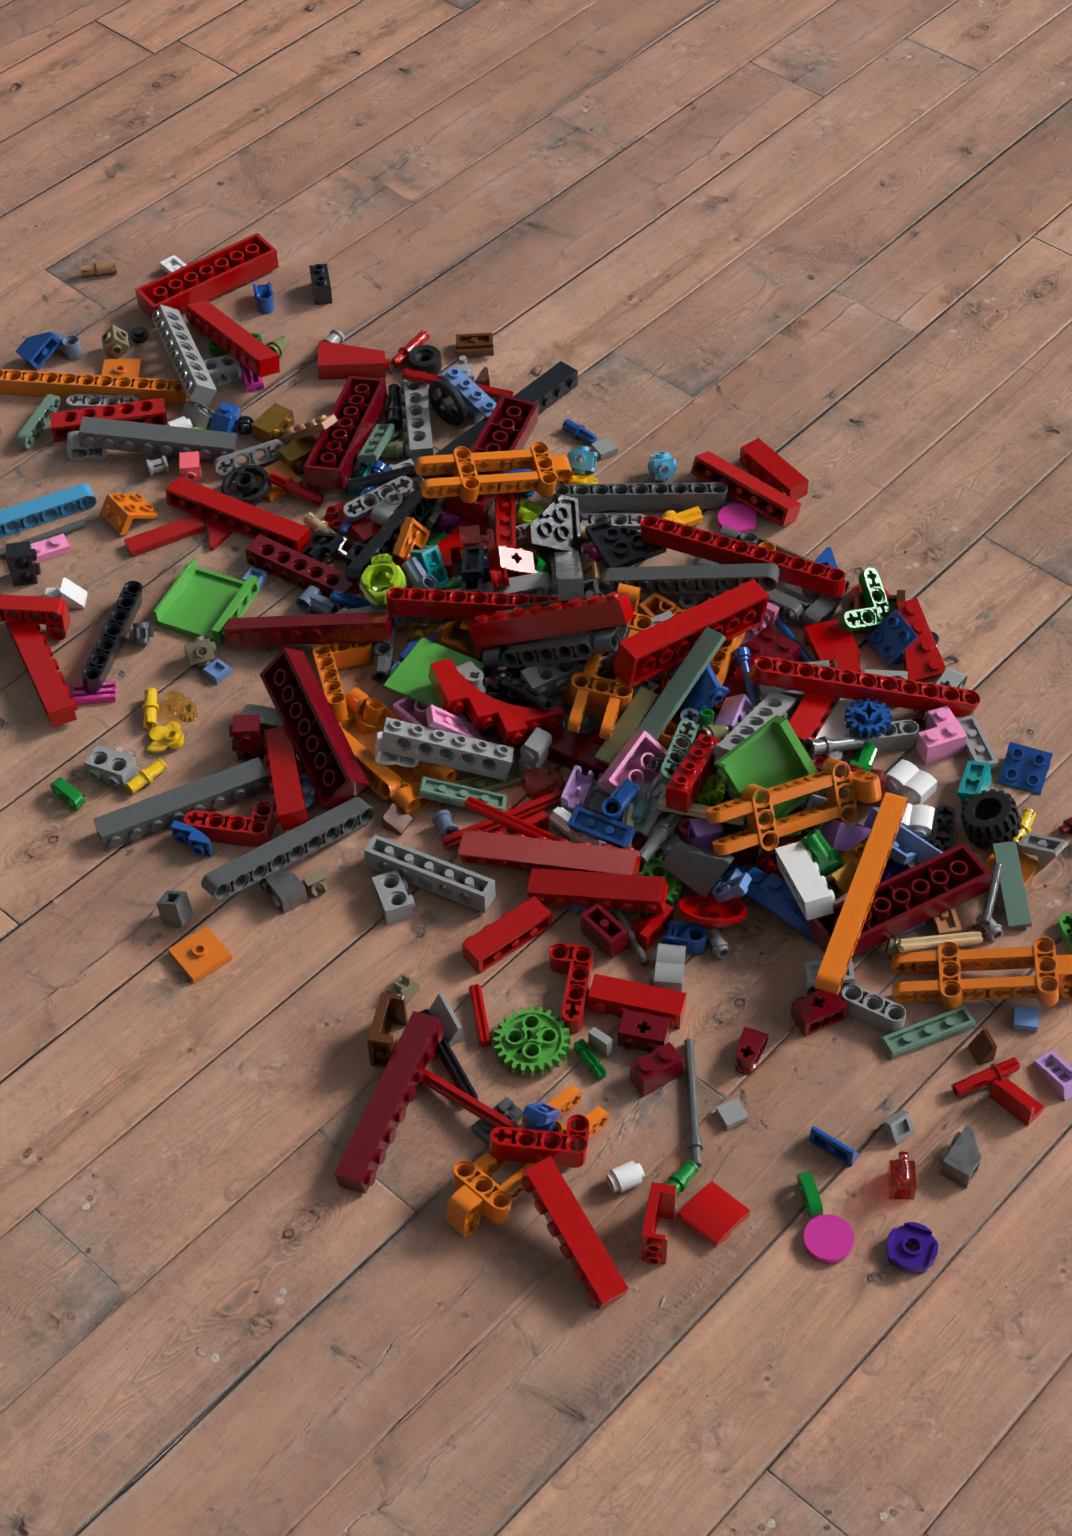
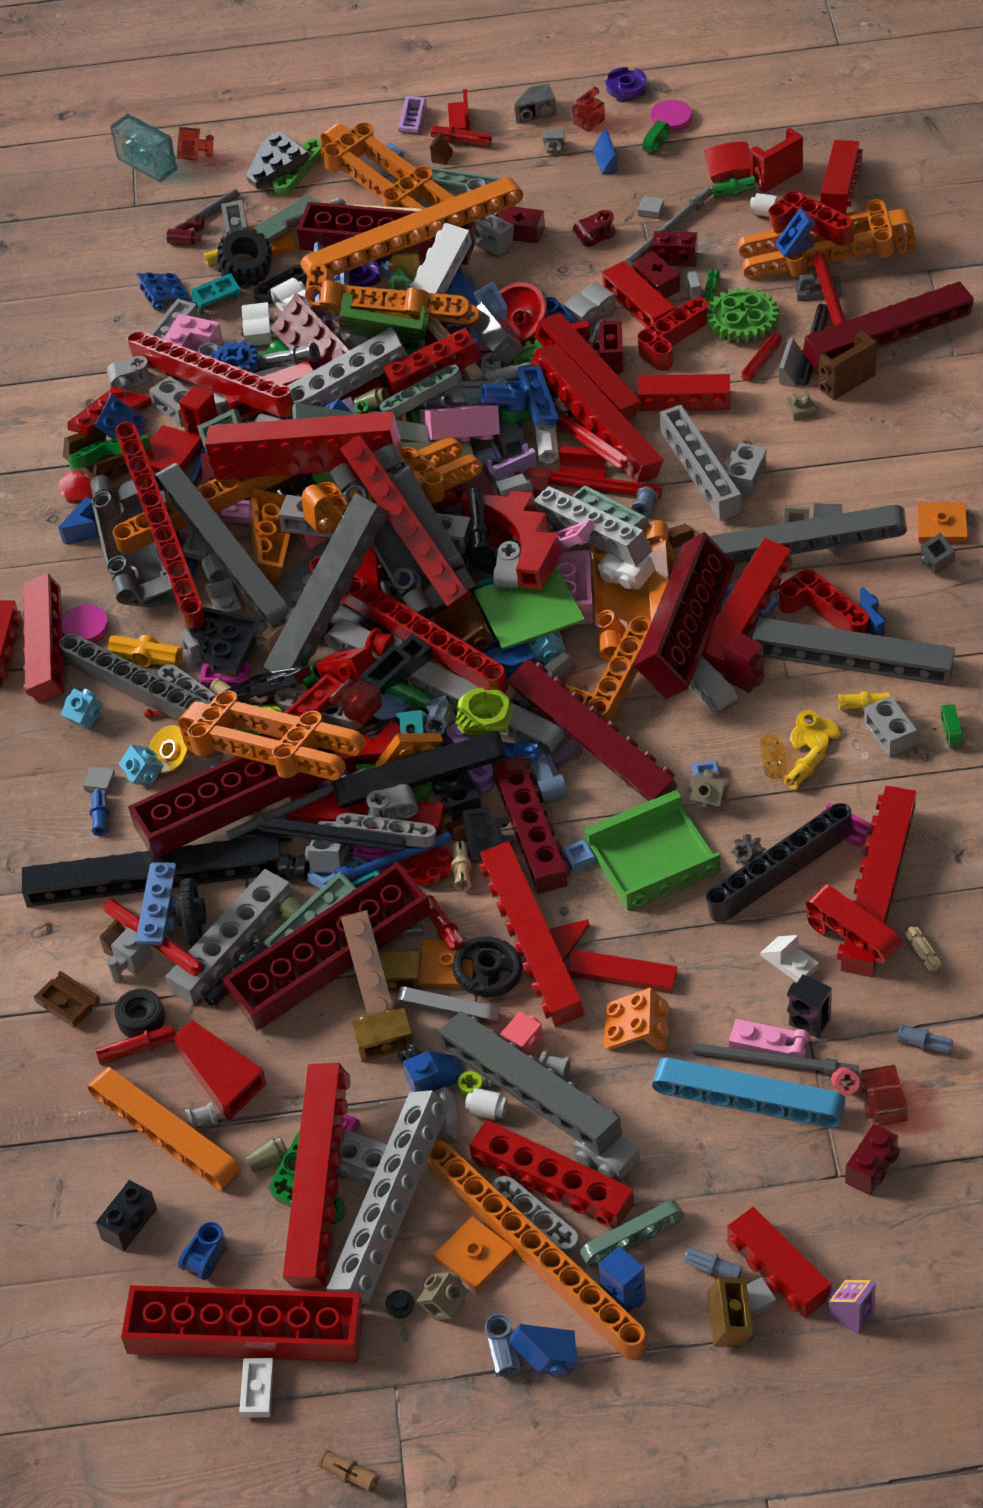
camera: 135 degrees left, 0 degrees up
(20, 390) = (623, 1279): none -> blue brick
(351, 325) = (164, 1128): none -> orange beam

